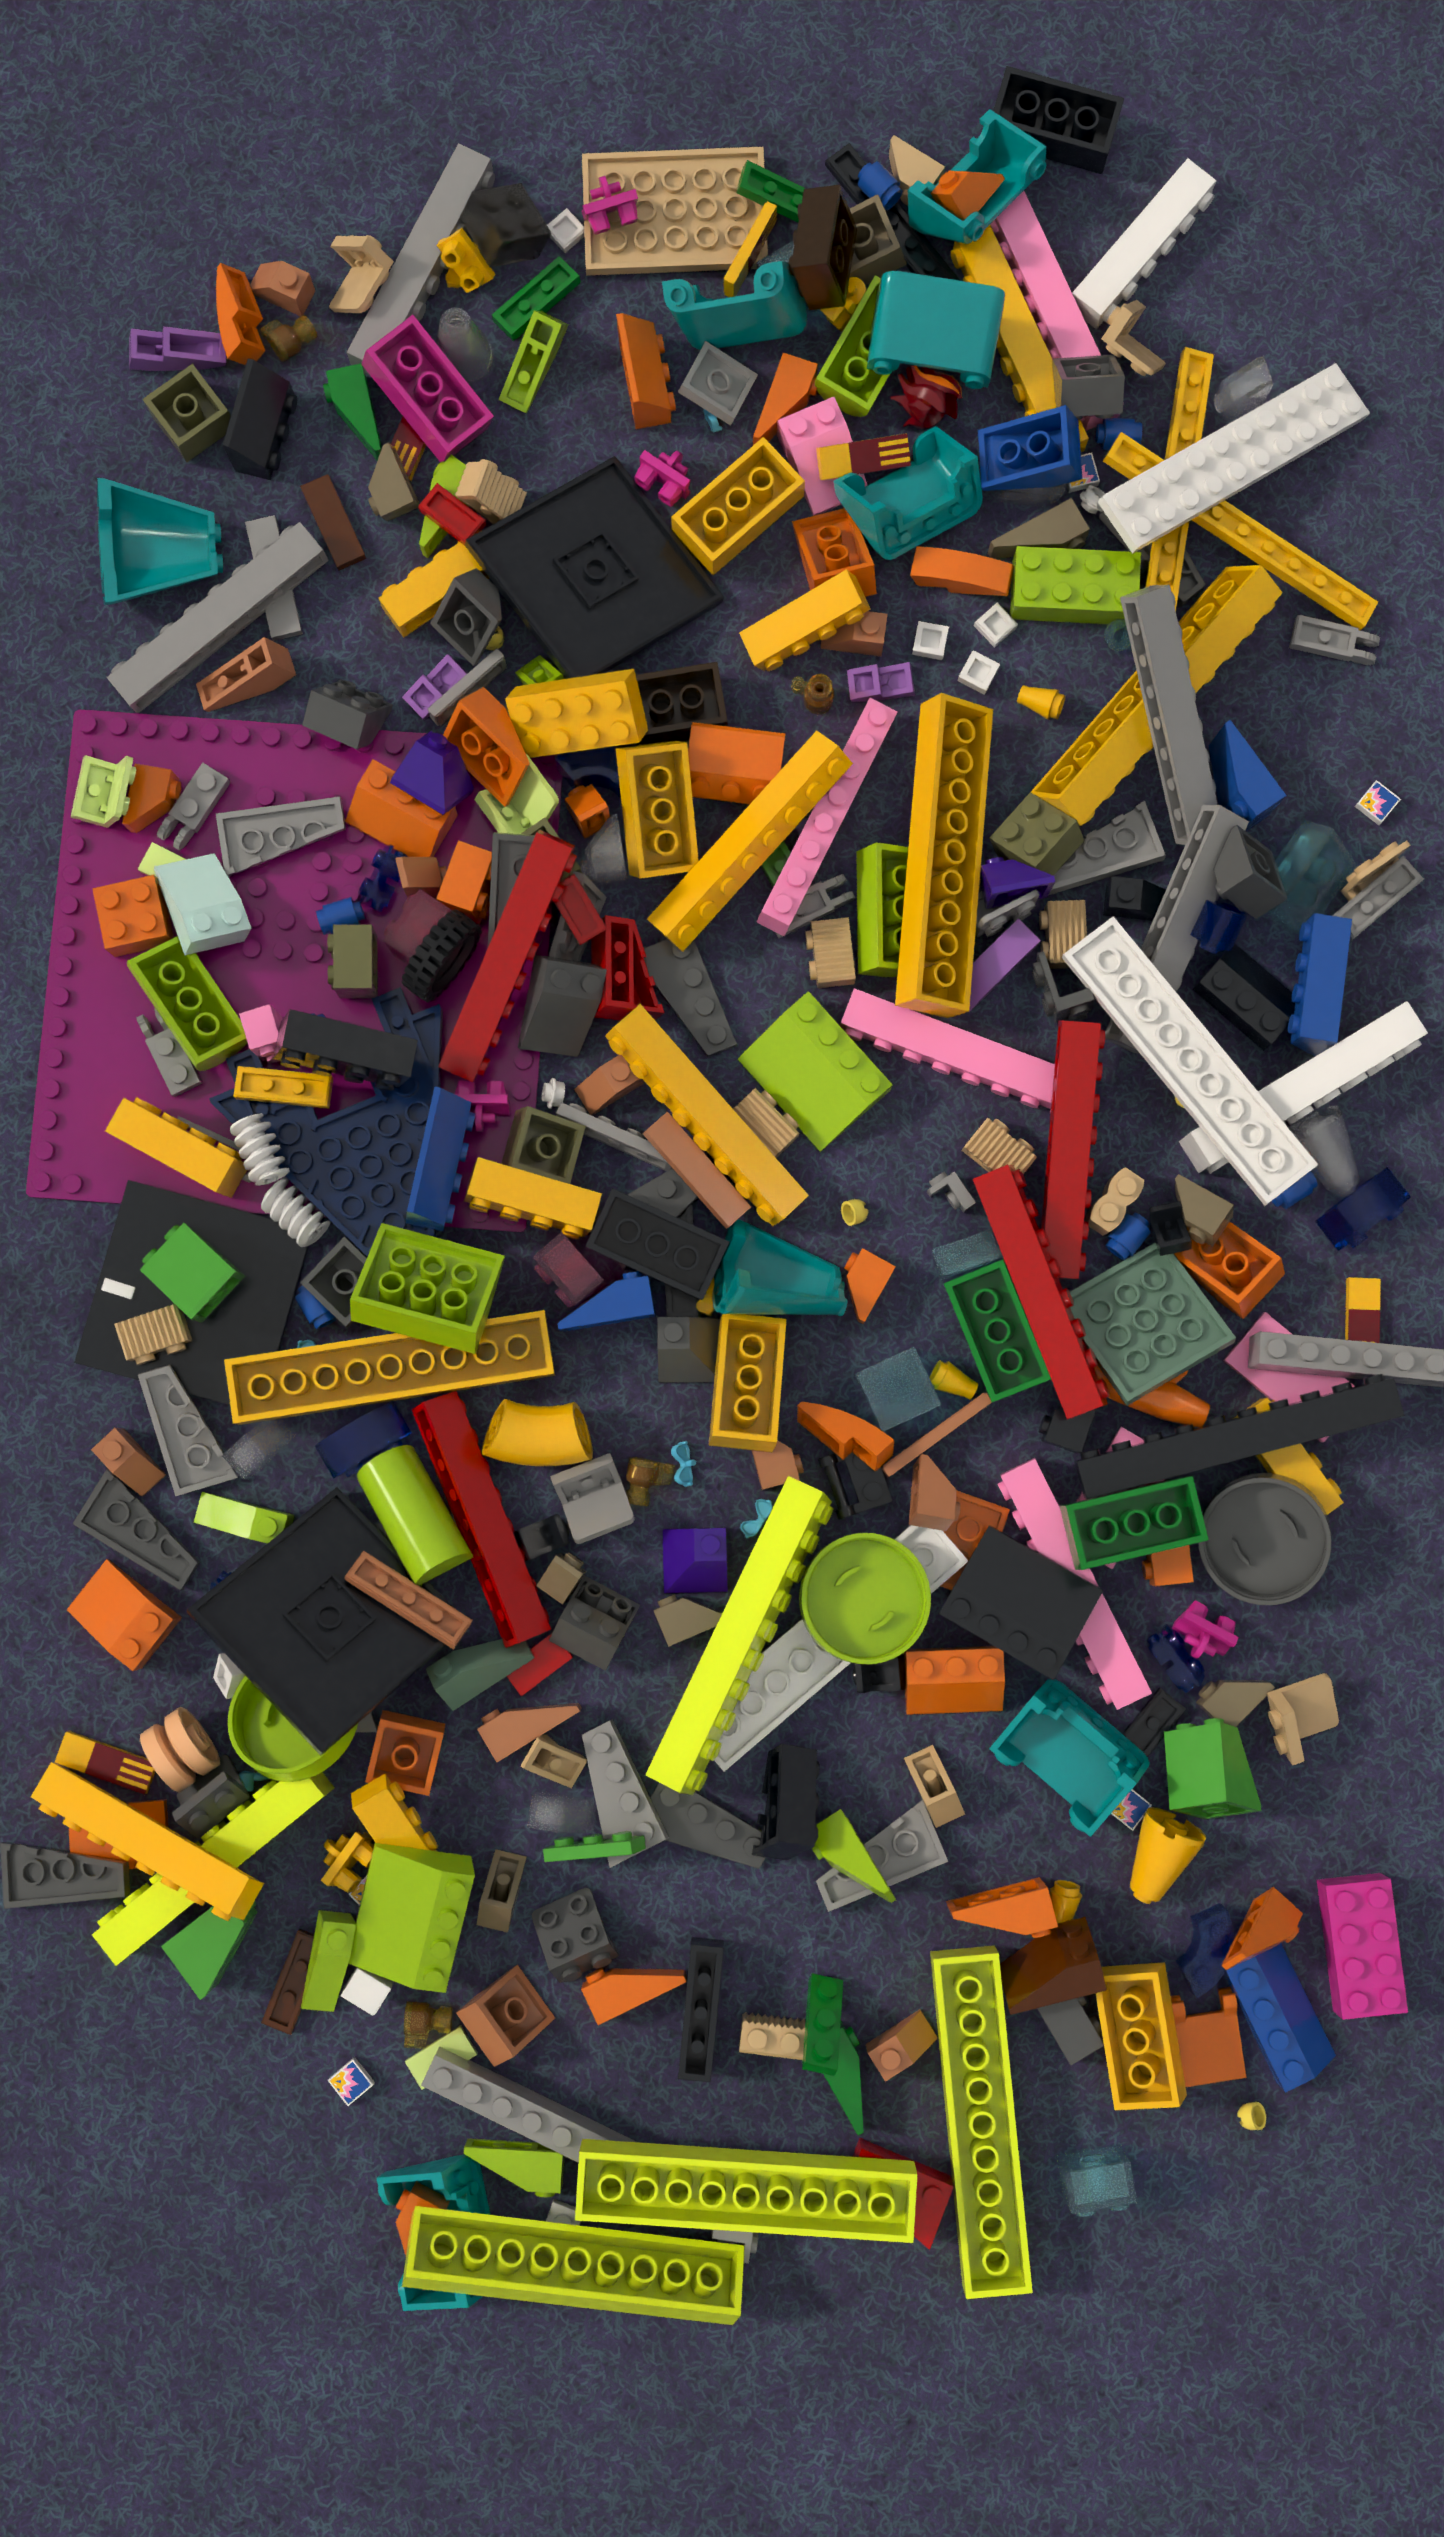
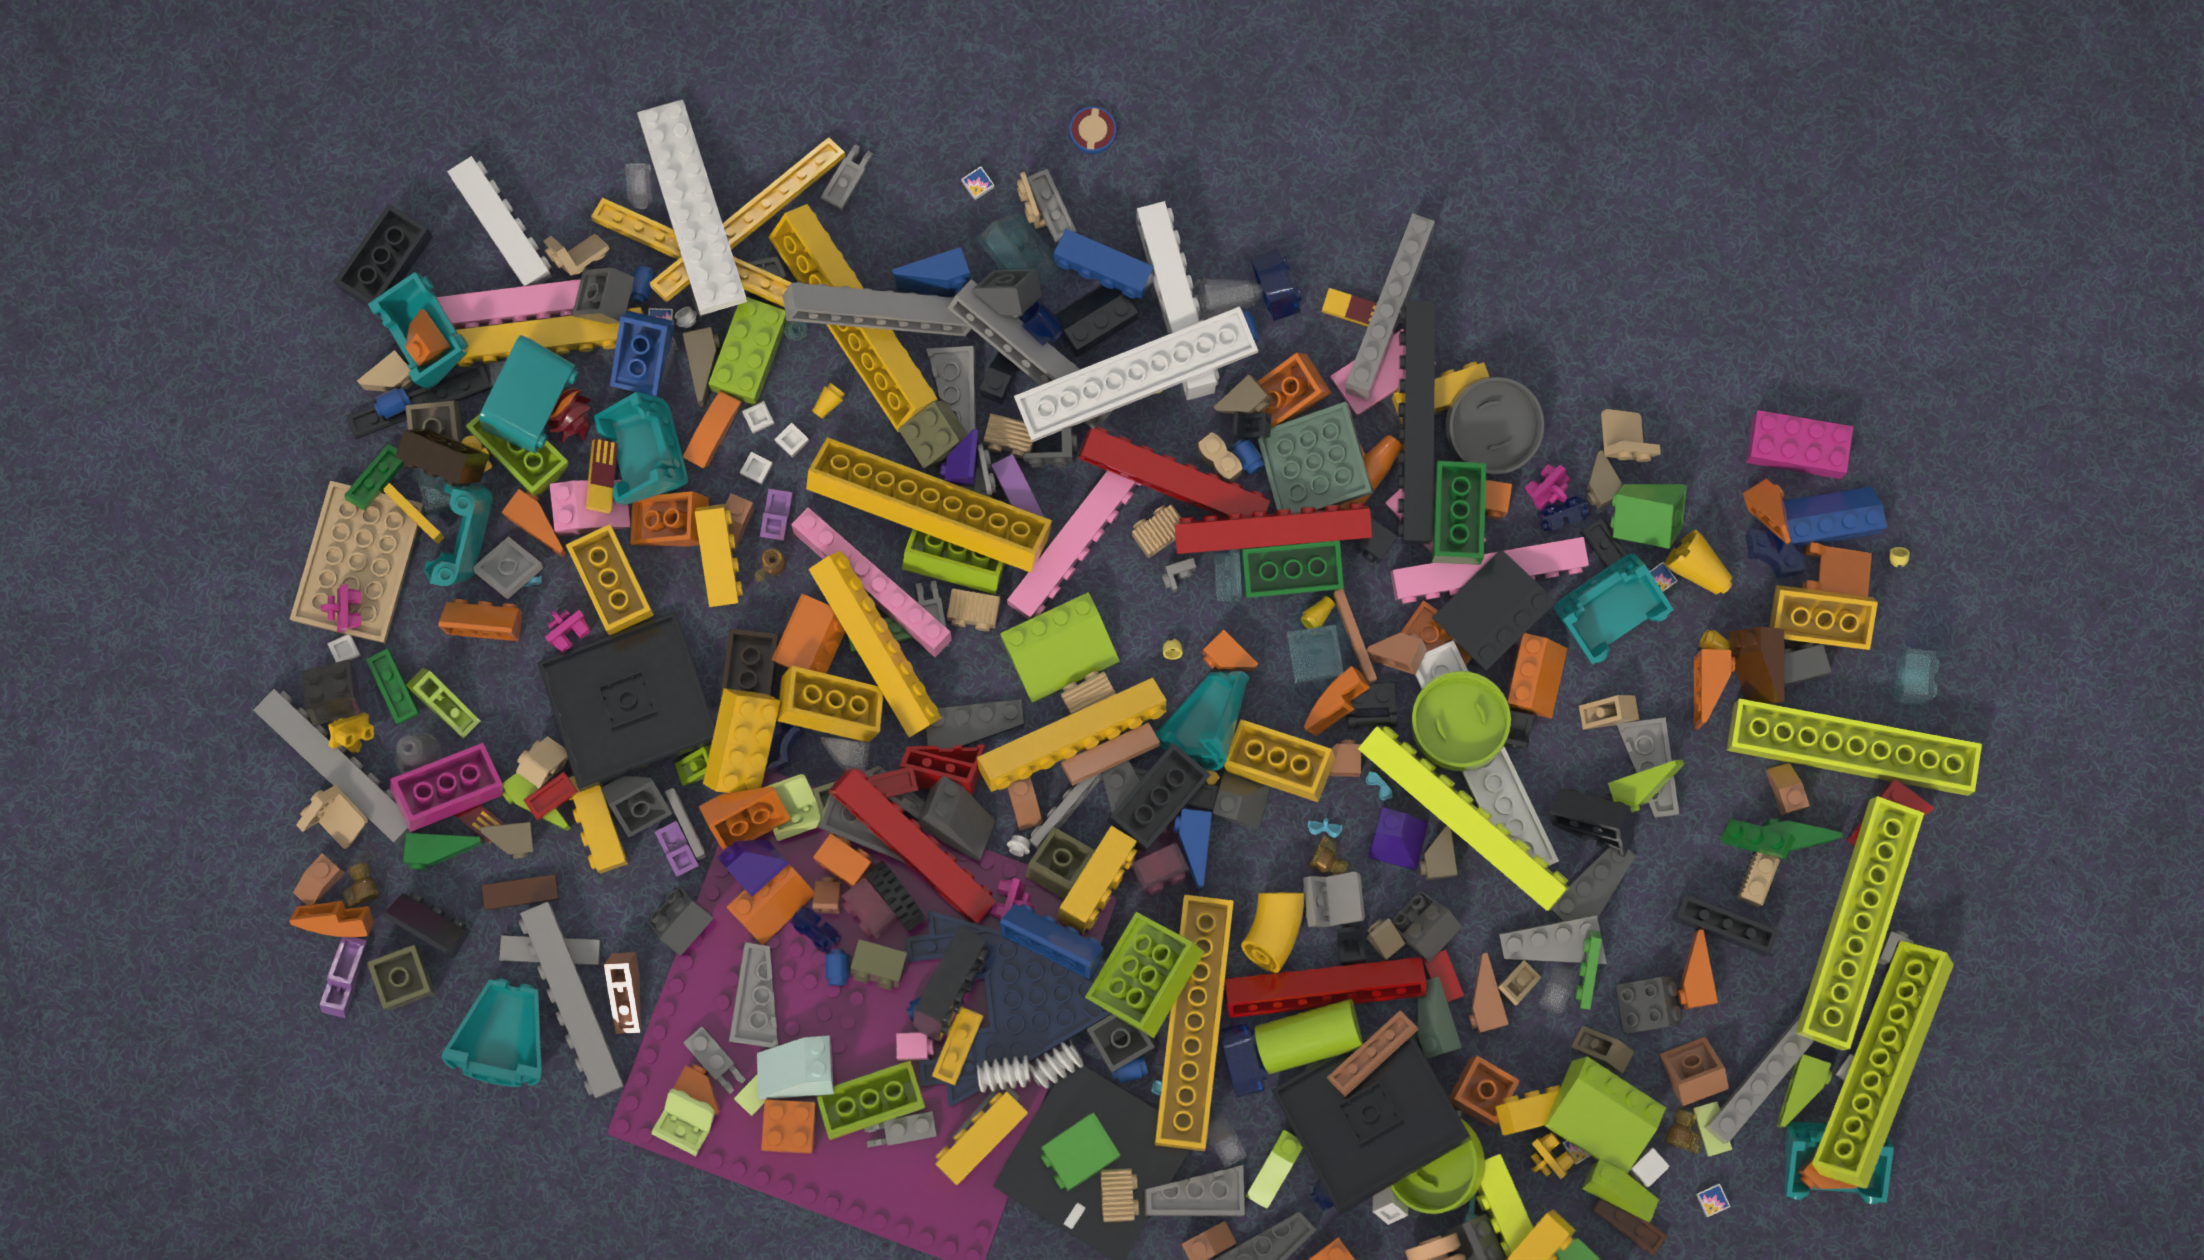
camera: 80 degrees left, 5 degrees down
(587, 809) = (809, 758): orange slope -> none

